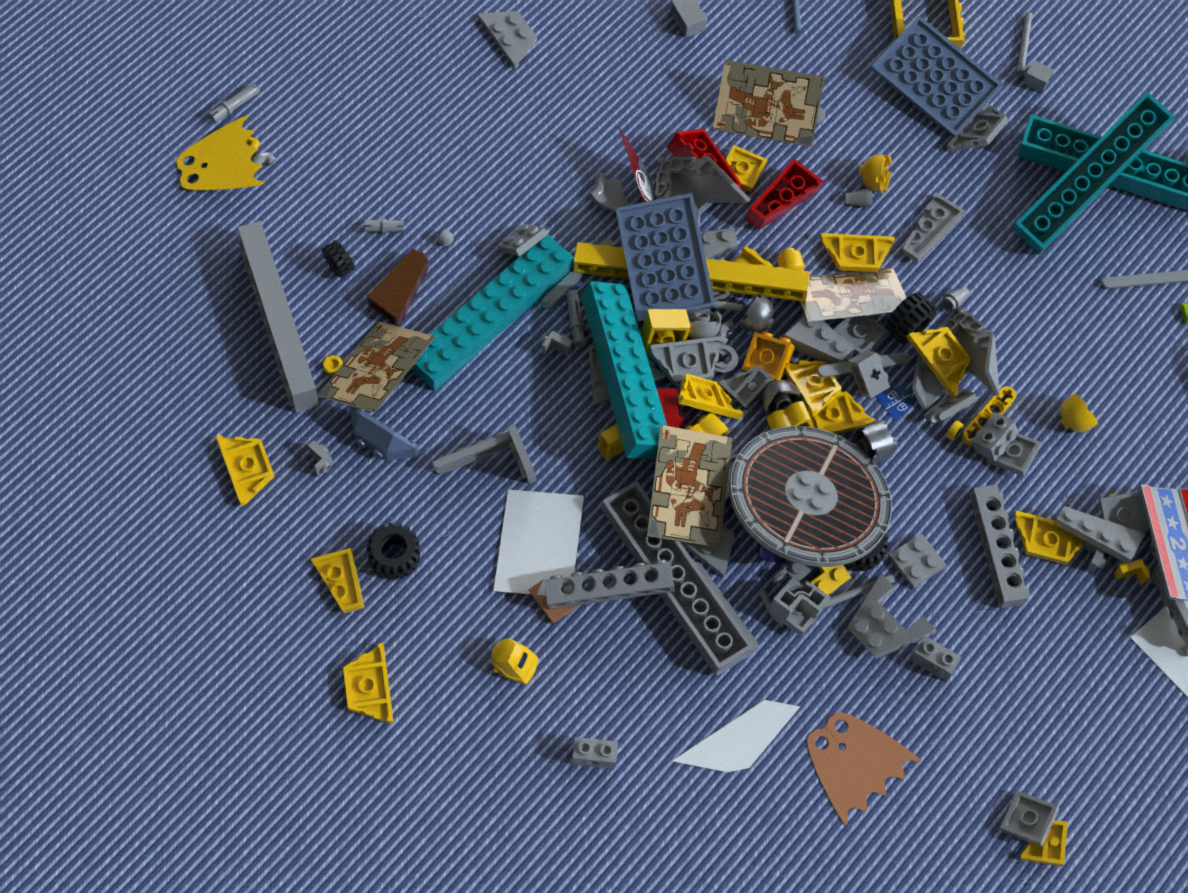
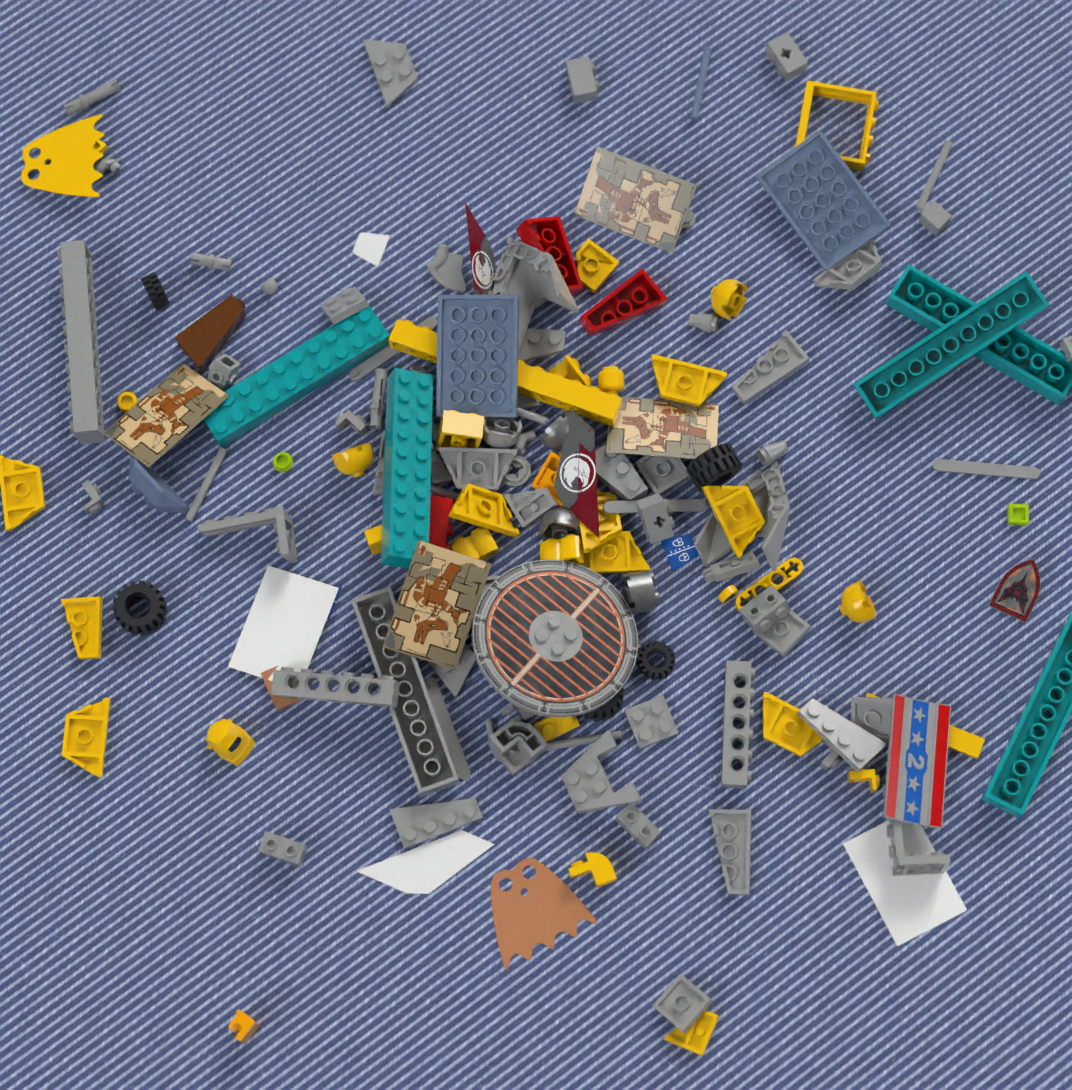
camera: 20 degrees right, 10 degrees up
(422, 318) = (223, 371): none -> light grey brick
(428, 426) = (206, 484): none -> light grey bar
(498, 391) = (282, 462): none -> lime plate
(531, 188) = (371, 247): none -> white sticker
(569, 375) = (354, 460): none -> yellow cylinder
(733, 696) = (429, 821): none -> light grey wing
(786, 345) = (577, 473): none -> sticker
(909, 705) = (598, 865): none -> yellow brick
(911, 493) = (647, 669): none -> black tyre
(1031, 659) = (733, 840): none -> light grey wing

